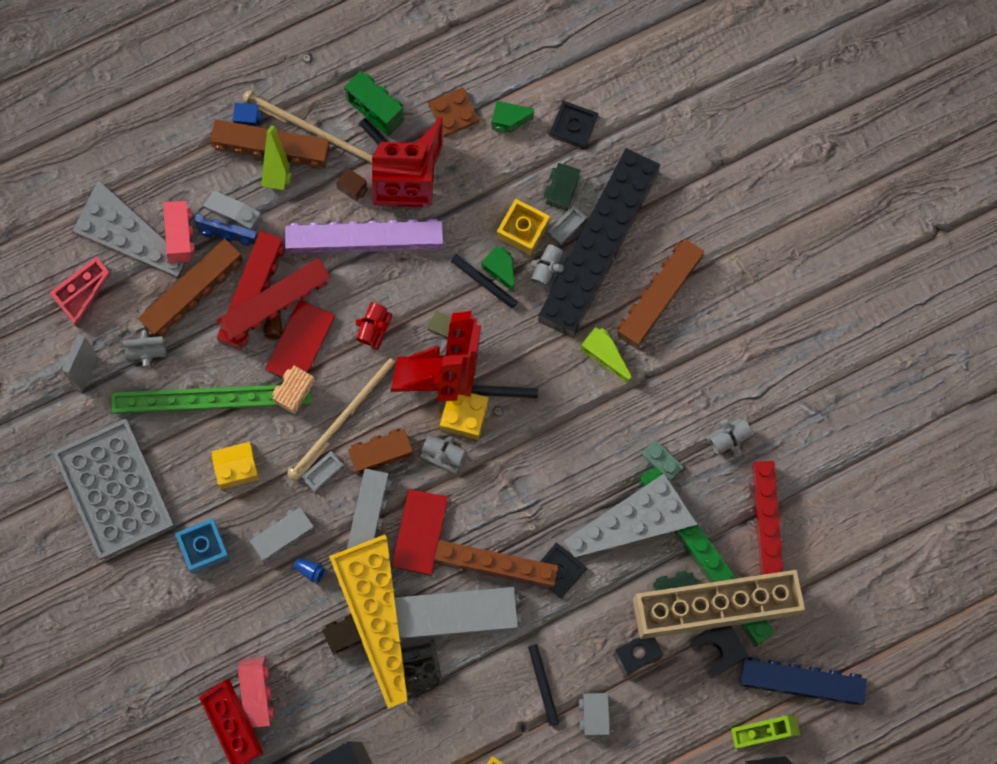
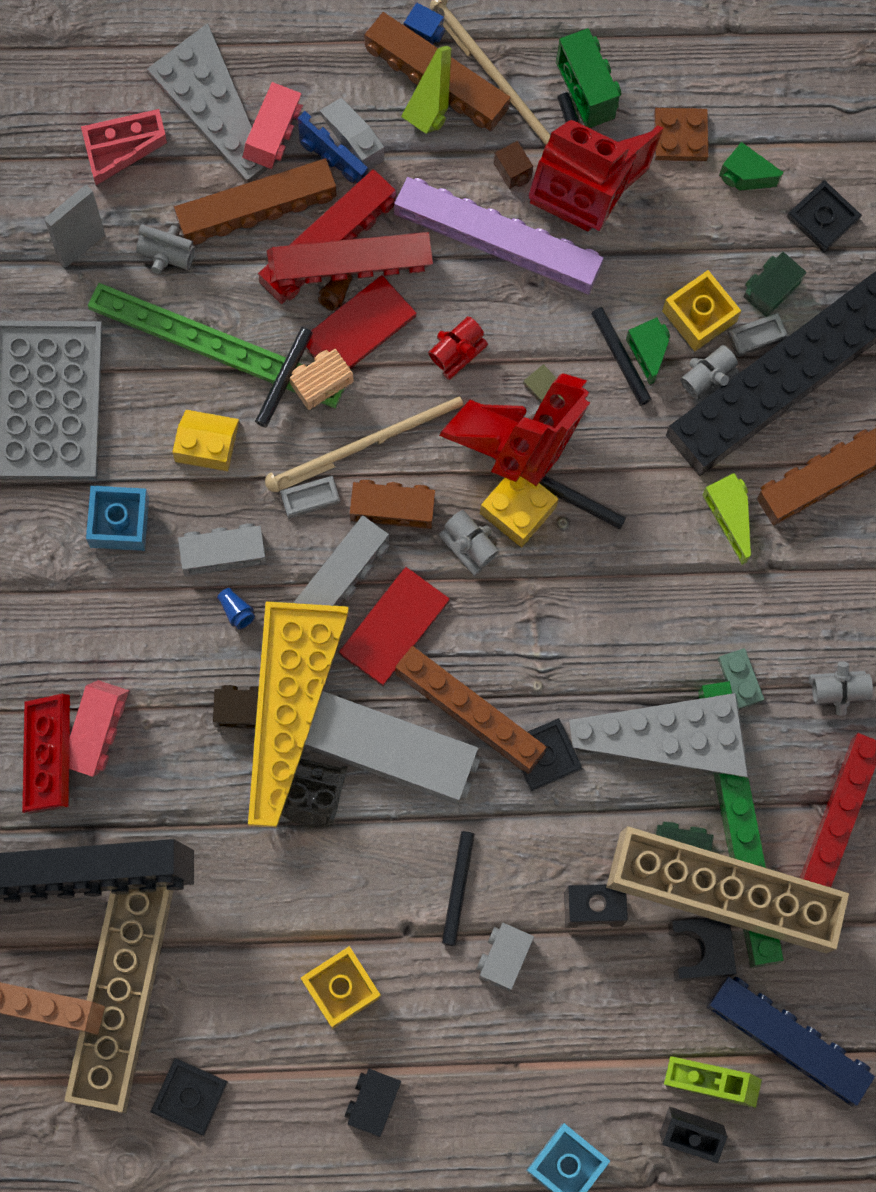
camera: 20 degrees right, 0 degrees up
(267, 399) = (283, 377): none -> black piece

